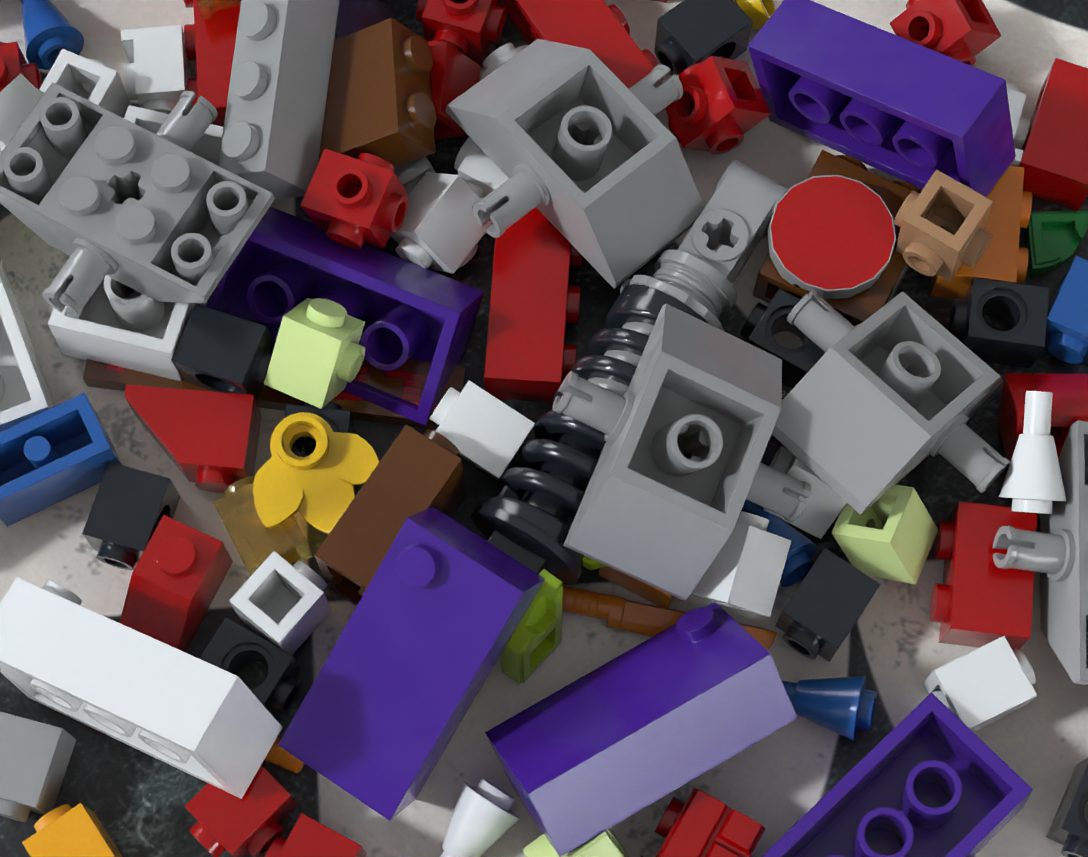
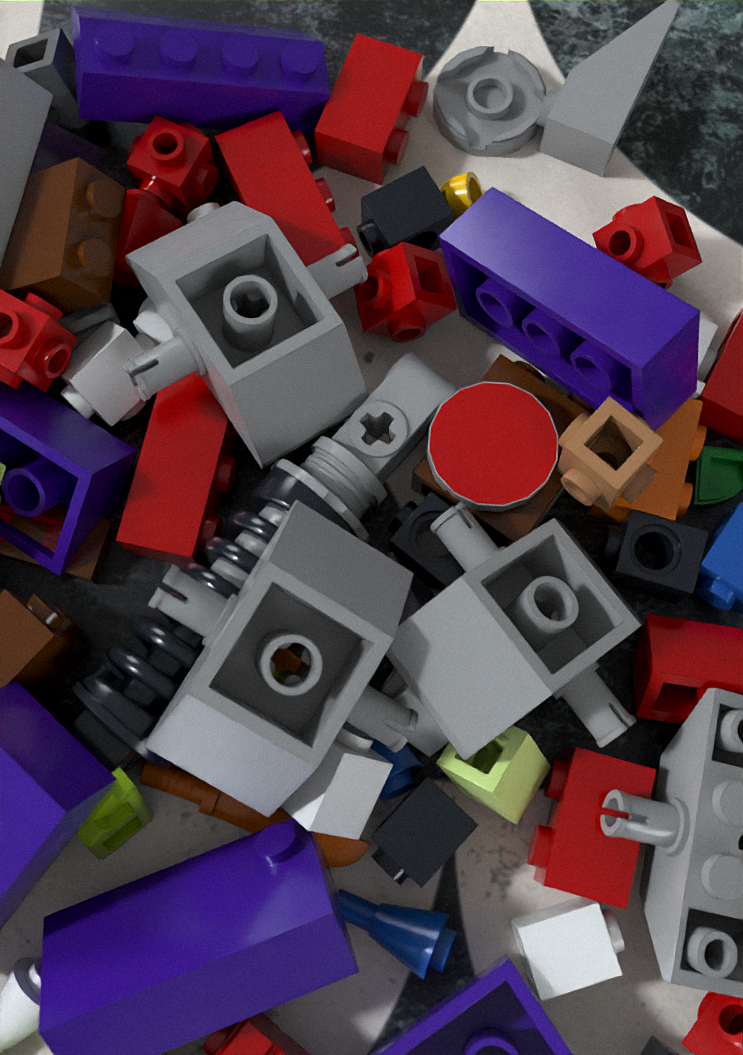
camera: 10 degrees right, 5 degrees up
(481, 427) = (99, 594): white brick -> none
(1034, 470) = (659, 736): white cone -> none

